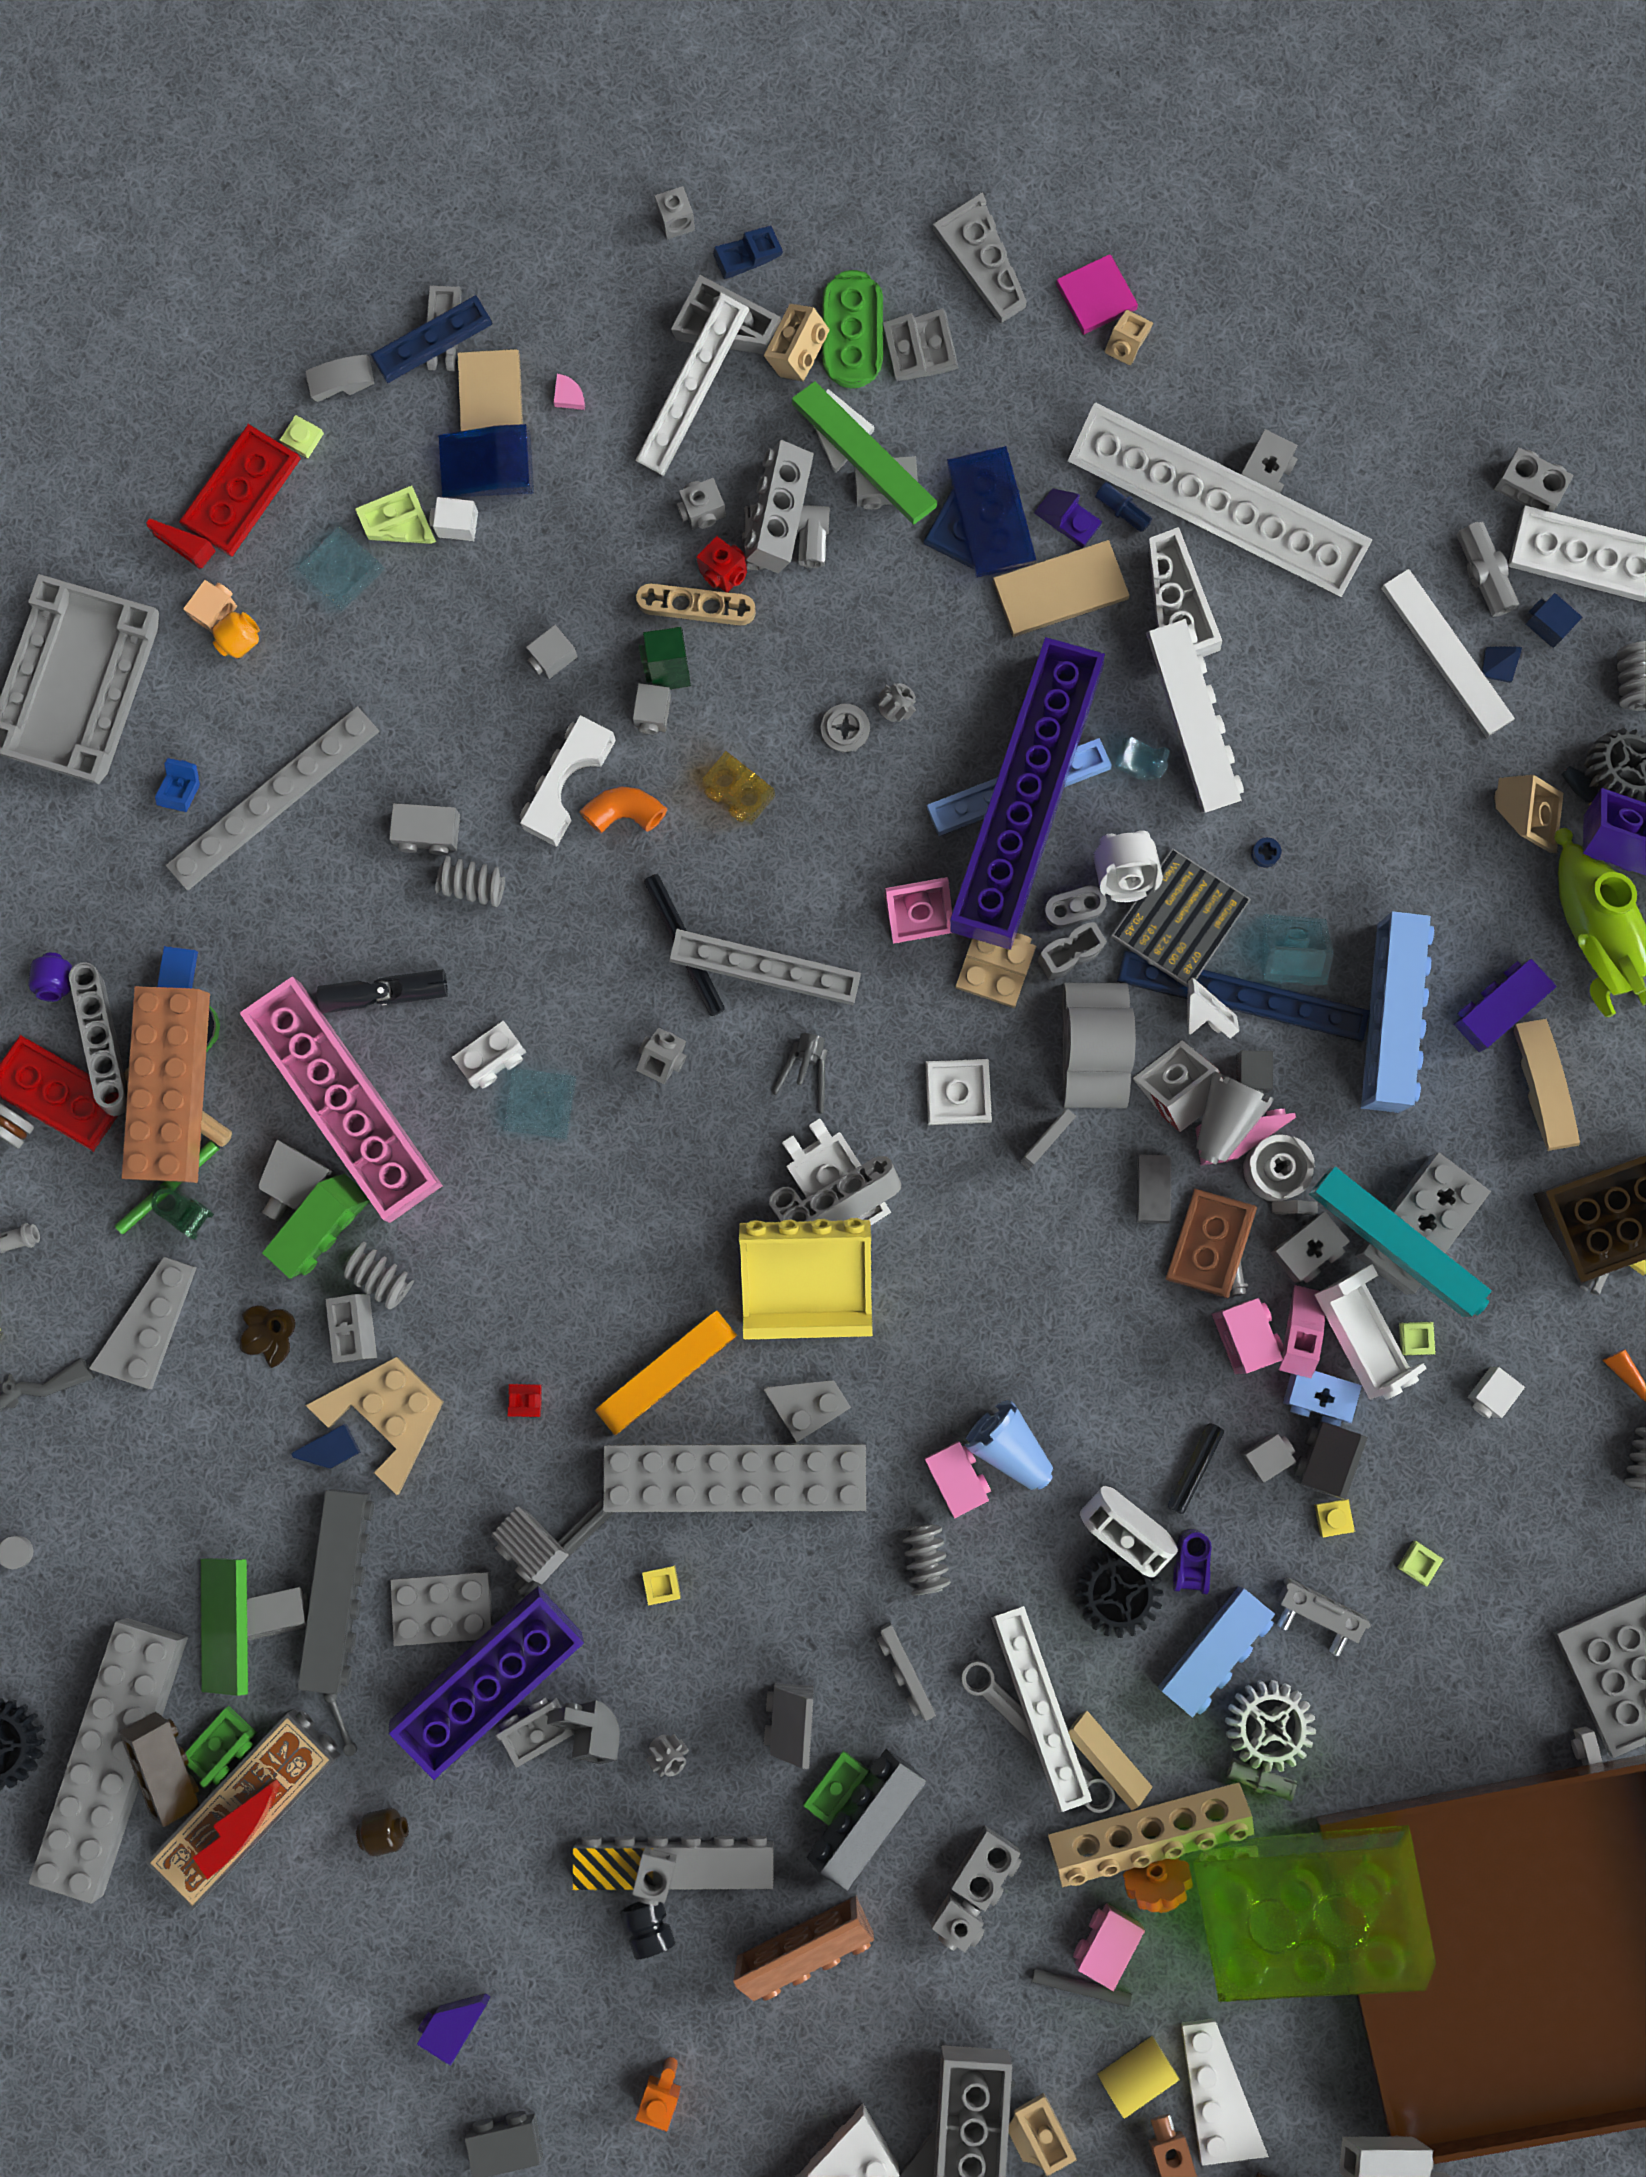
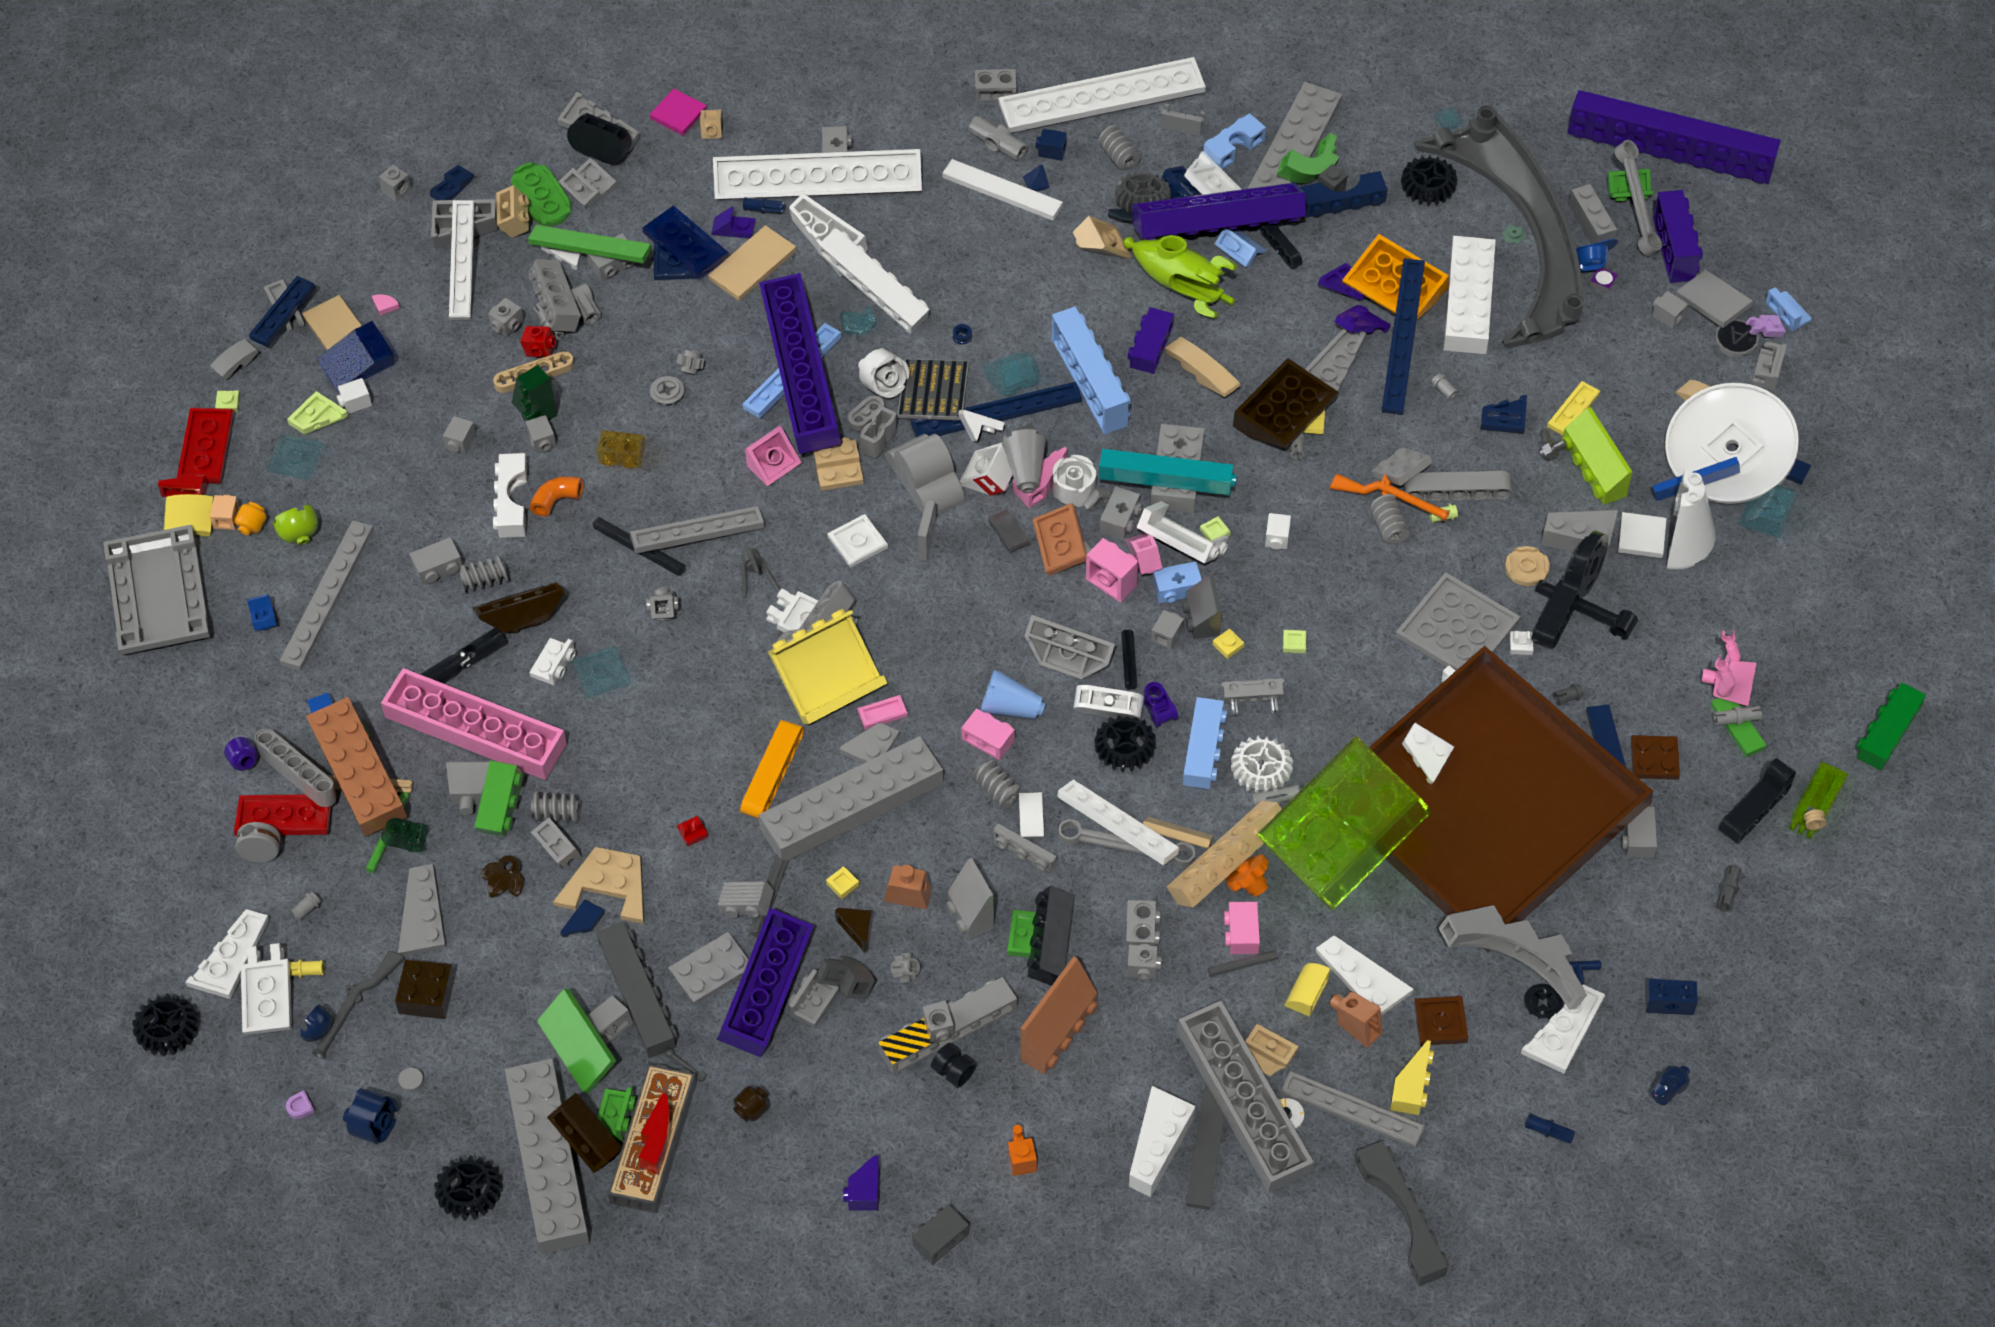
camera: 30 degrees left, 25 degrees down
(89, 1443) = (425, 989): none -> dark brown brick
(166, 583) = (189, 510): none -> light yellow slope
(283, 680) = (296, 525): none -> lime cylinder
(483, 958) = (521, 609): none -> dark brown wedge
(644, 1659) = (856, 924): none -> dark brown slope
(731, 1645) = (908, 887): none -> nougat torso
(847, 1364) = (882, 711): none -> bright pink tile
(944, 1624) = (1031, 815): none -> white slope
(967, 287) = (599, 138): none -> black brick
(1130, 1415) = (1067, 648): none -> light grey wedge
(1487, 1851) = (1427, 751): none -> white wing

